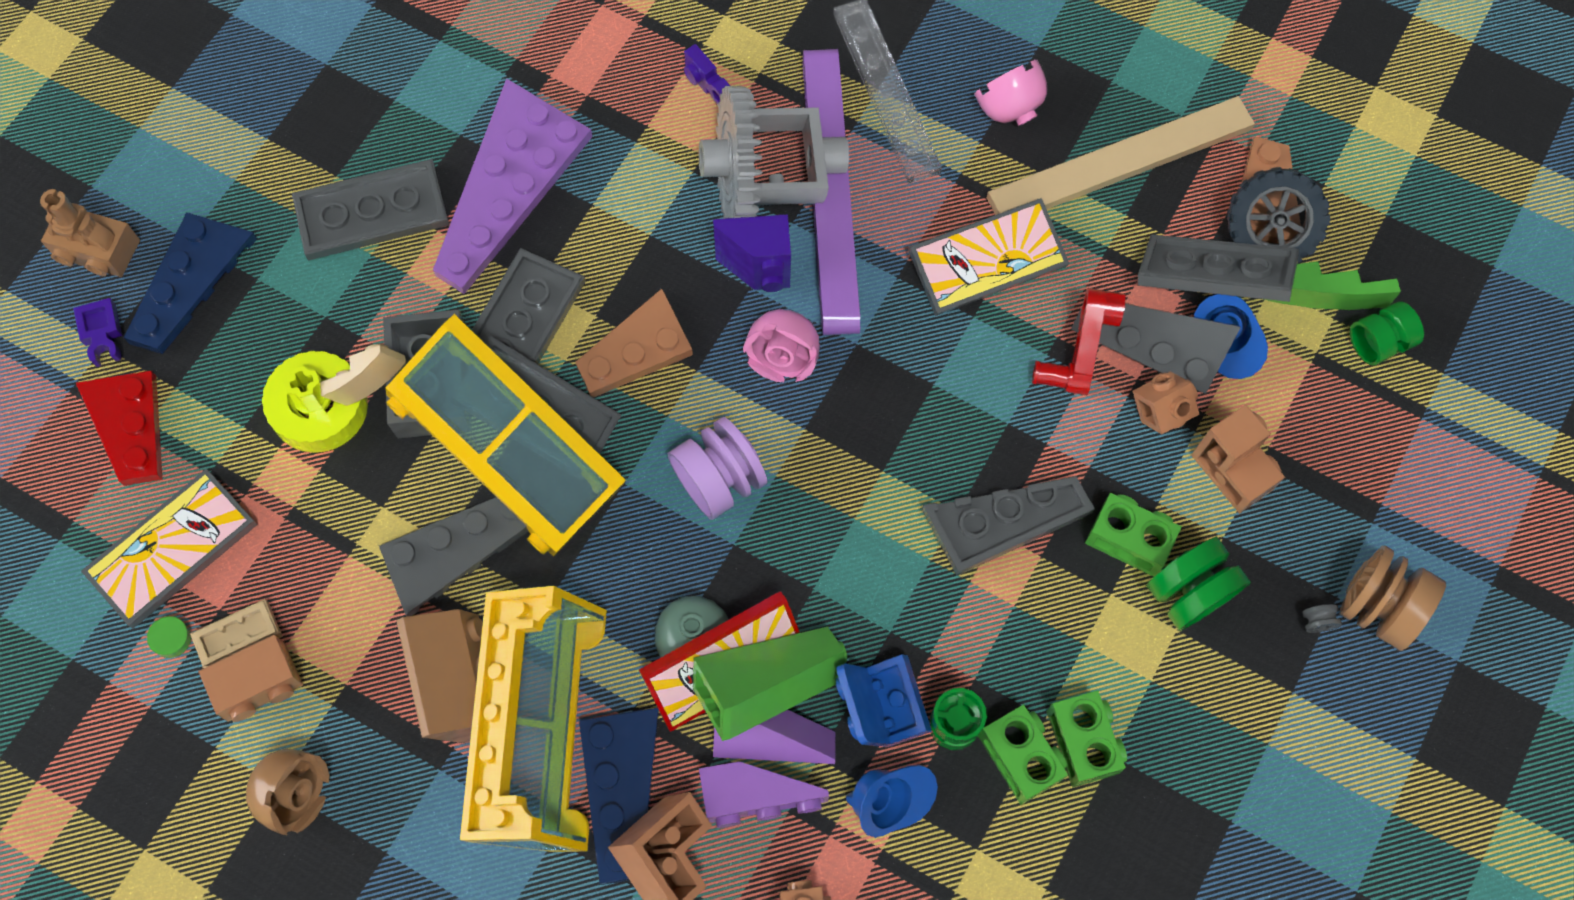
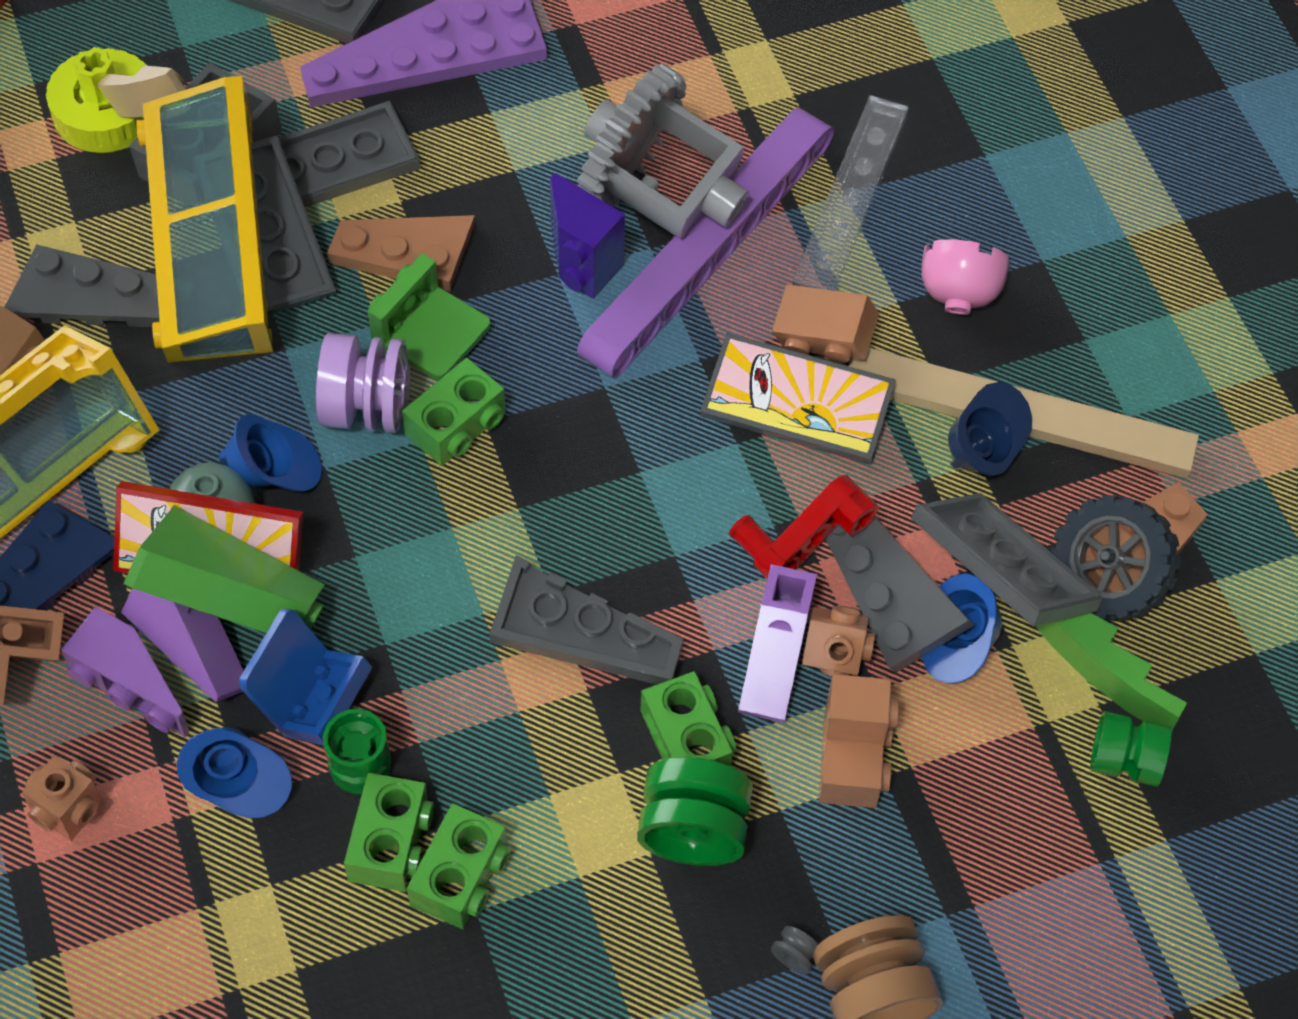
camera: 40 degrees right, 10 degrees down
(702, 567) = (272, 455): none -> blue piece
(703, 72) = (690, 67): dark purple plate -> none
(708, 389) = (430, 320): none -> bright green bracket
(782, 346) = (526, 330): bright pink cylinder -> none
(784, 438) = (447, 406): none -> bright green brick
(965, 193) = (825, 323): none -> nougat brick
(1126, 191) = (990, 430): none -> dark blue piece
(1133, 431) = (777, 643): none -> slope

